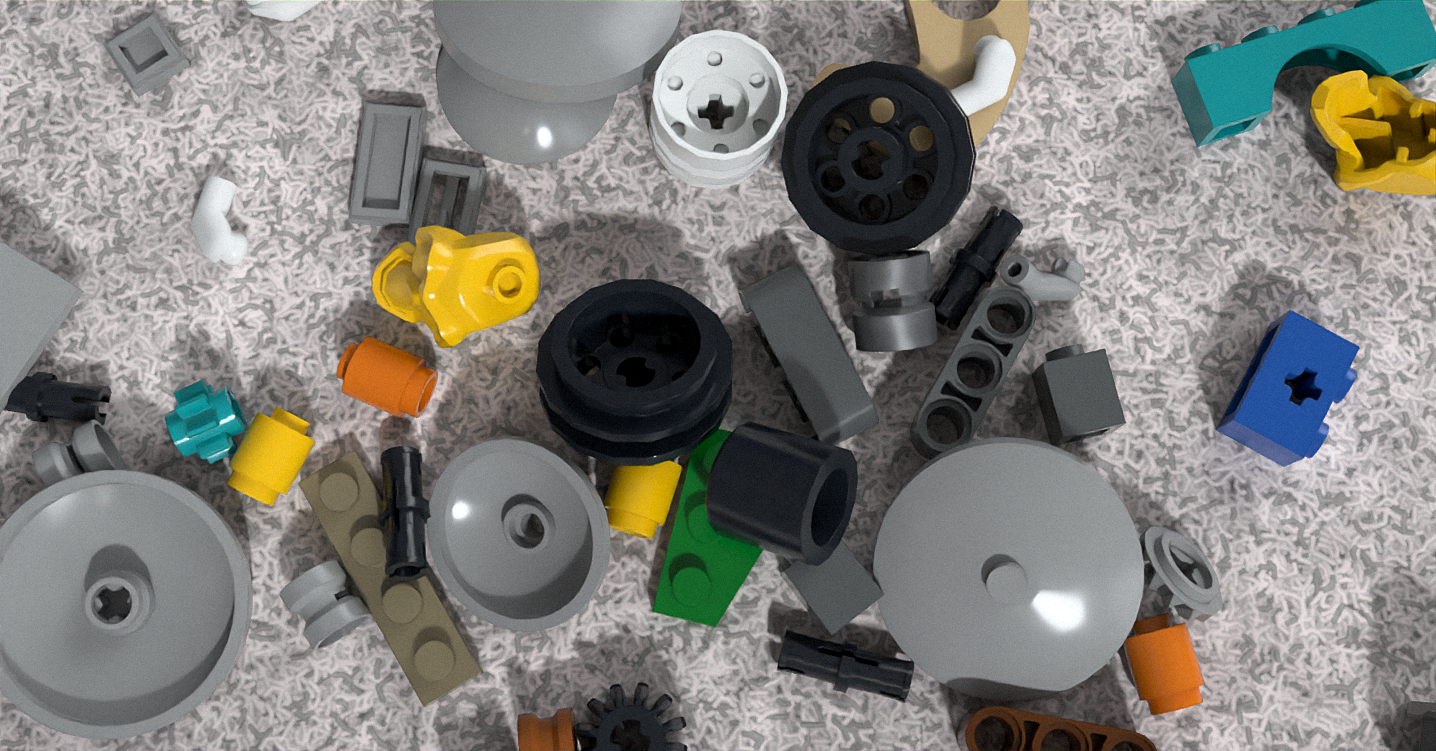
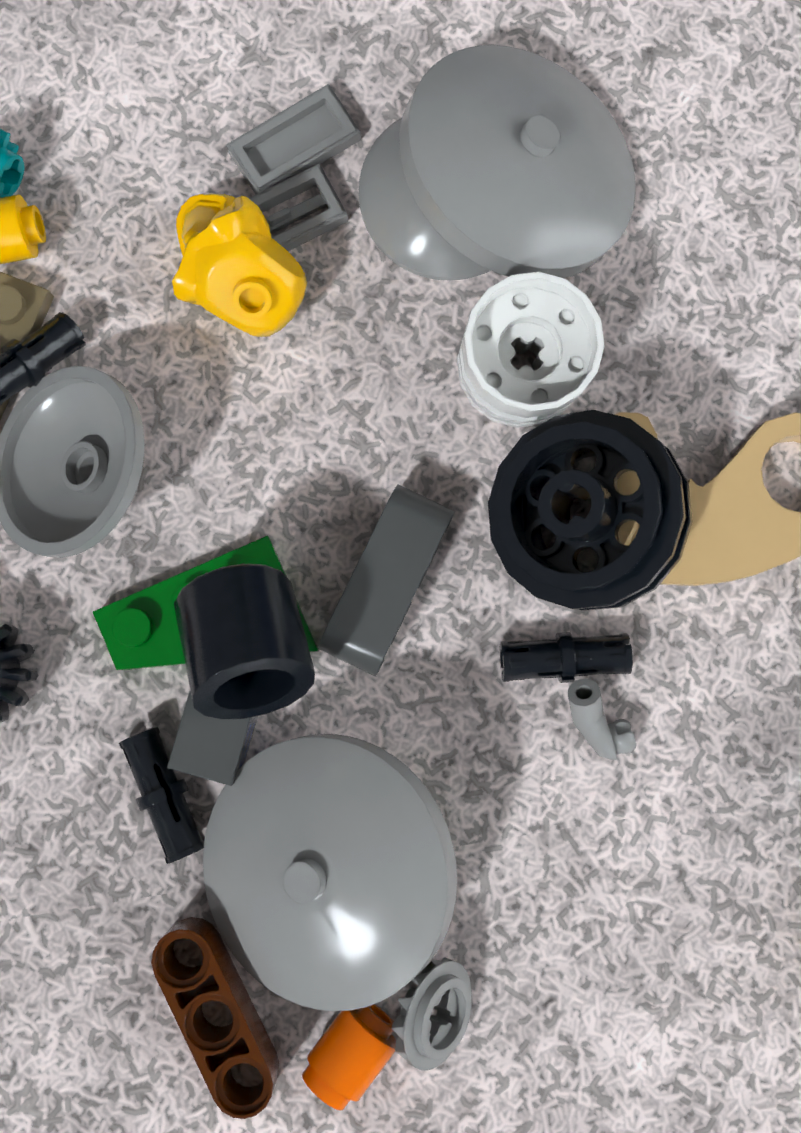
camera: 50 degrees right, 5 degrees up
(211, 226) = (143, 48): white arm -> none
(386, 377) = (121, 270): orange brick -> none
(641, 497) = (179, 531): yellow brick -> none
(659, 374) = (251, 489): black wheel -> none
(898, 322) = (473, 619): flat silver wheel -> none
(988, 349) = (504, 729): dark grey beam -> none
(991, 76) = (734, 552): white arm -> none
(1077, 395) = (521, 821): dark grey brick -> none
(1261, 408) = (631, 979): blue brick -> none

